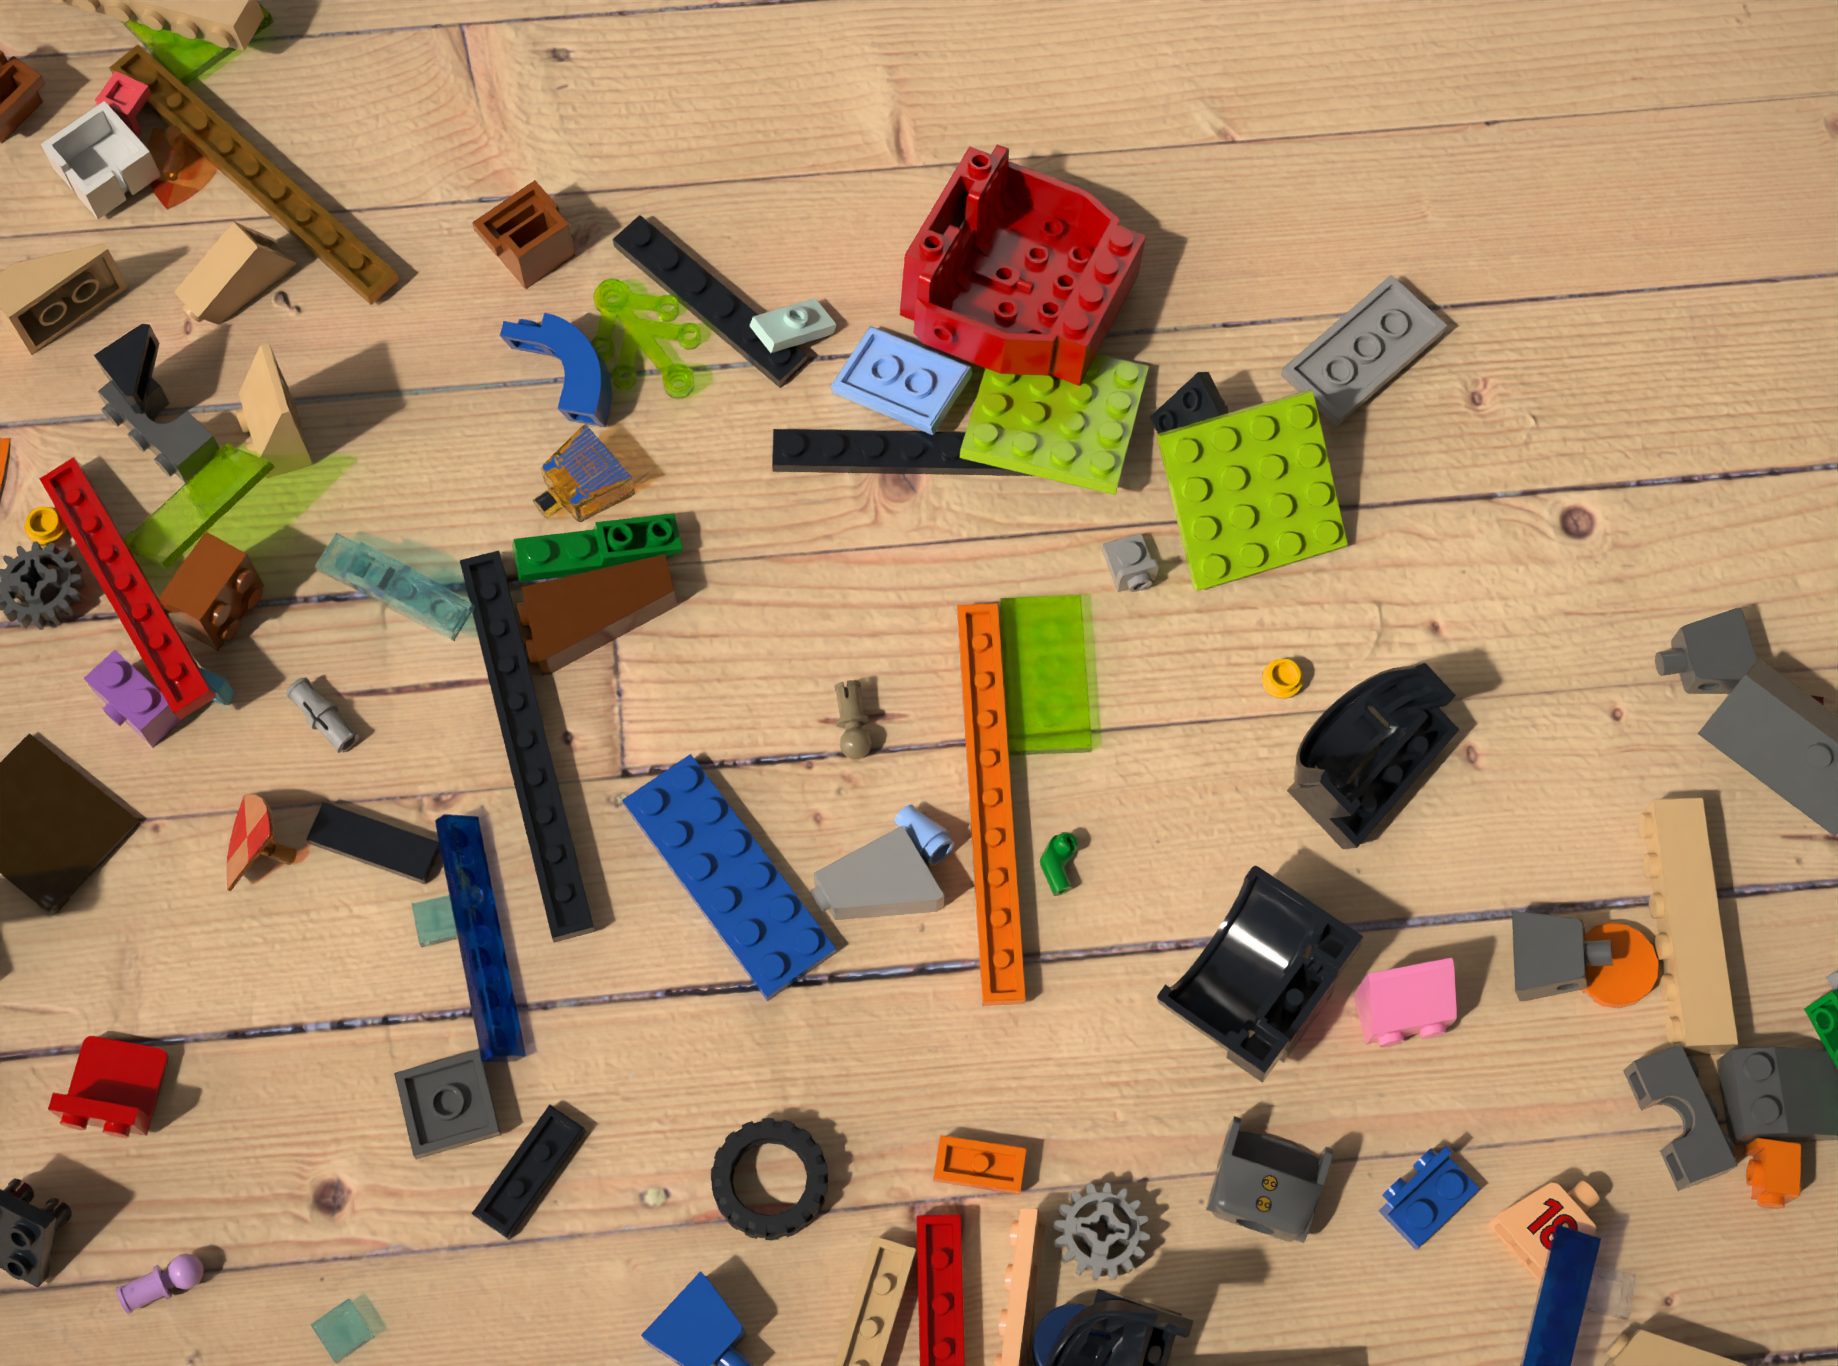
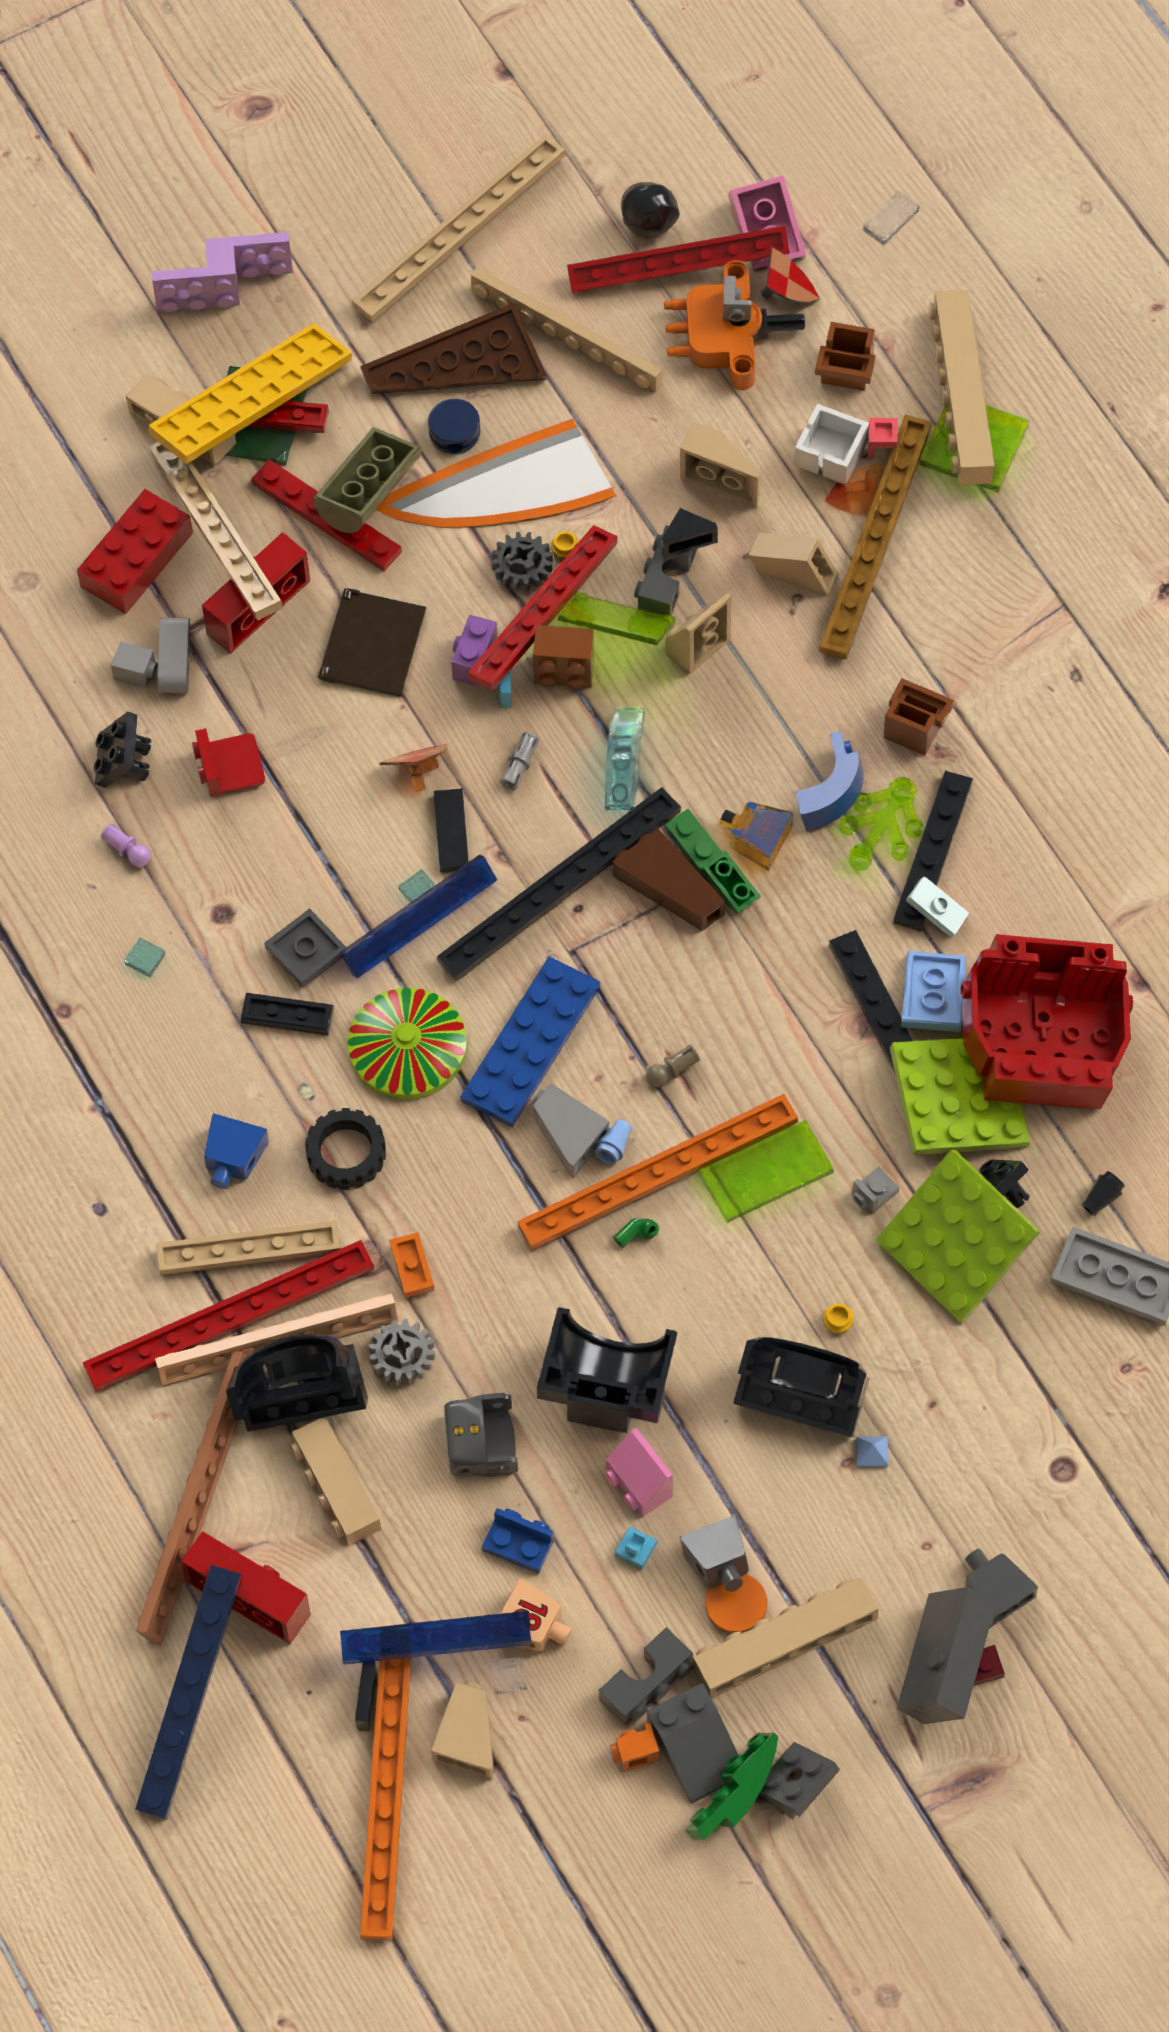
camera: 70 degrees right, 5 degrees down
(652, 1033) = (407, 1043): none -> dish
(1251, 318) = (1104, 1191): none -> black cone
(1473, 718) = (872, 1451): none -> light blue slope
(1492, 1054) = (635, 1548): none -> medium azure tile

